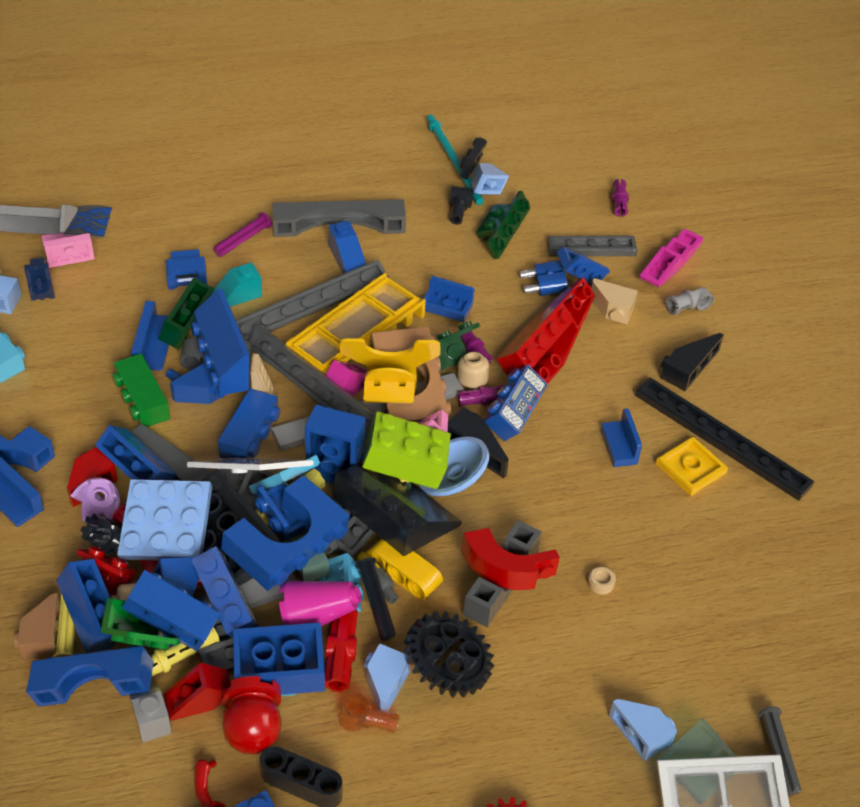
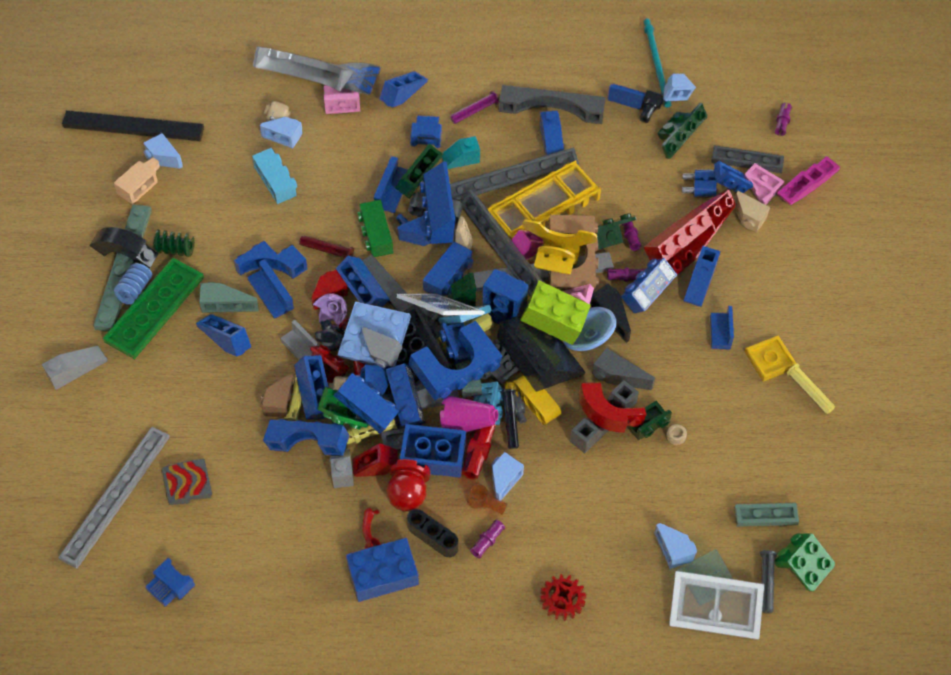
camera: 15 degrees right, 10 degrees up
(39, 279) = (316, 125): dark blue hips -> none
(57, 548) = (298, 341): none -> light grey panel
(74, 423) = (326, 247): none -> dark red axle
(143, 225) = (401, 88): none -> blue slope
(181, 531) = (382, 348): none -> light grey slope
(277, 443) = (464, 290): none -> dark green slope
(381, 770) = (487, 538): none -> magenta pin
(427, 197) = (626, 96): none -> blue panel
(449, 299) = (620, 190): blue bracket -> none
(463, 669) = (562, 483): black gear -> none
(472, 157) = (670, 65): black hinge -> none
(473, 370) = (623, 253): tan head -> none
(501, 511) = (615, 369): none -> dark grey slope
(569, 566) = (655, 418): none -> dark green bracket
(578, 381) = (702, 276): none -> blue slope
(623, 268) = (764, 183): none -> bright pink wing
(689, 300) = (819, 220): light grey connector -> none
(689, 361) = (795, 272): black slope -> none
(725, 439) = (803, 341): black tile -> none
(750, 661) = (766, 514): none -> sand green plate
(754, 493) = (812, 390): none -> light yellow axle
(822, 708) = (806, 559): none -> green bracket

